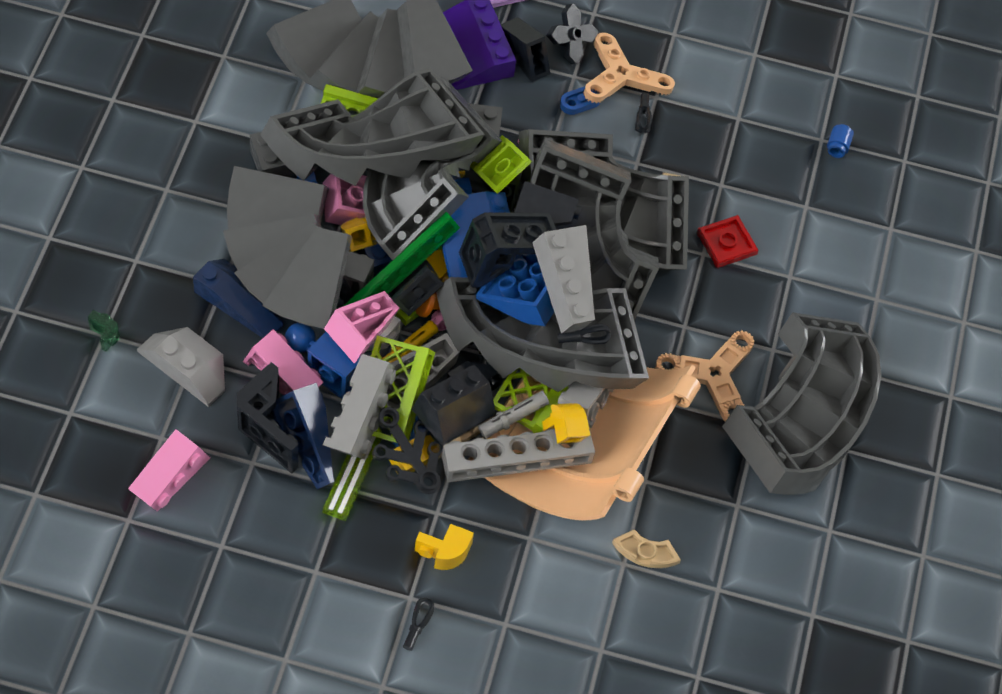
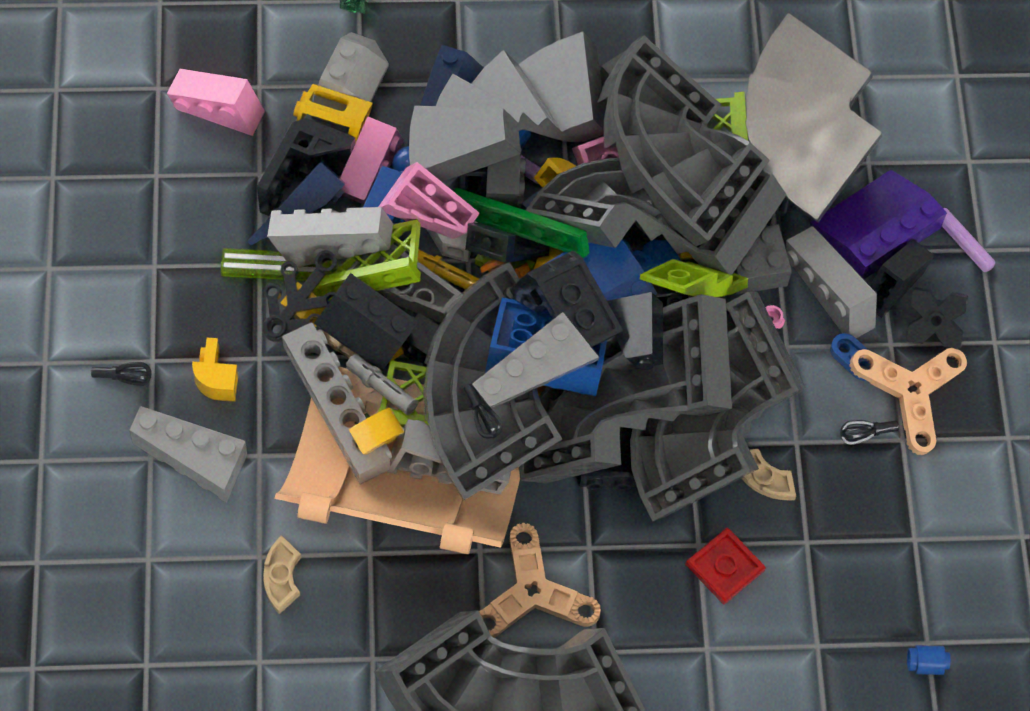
camera: 75 degrees right, 5 degrees up
(241, 364) = (353, 116): none -> yellow window
(517, 87) = (833, 282): none -> light grey wedge
(521, 579) = (191, 450): none -> light grey wedge

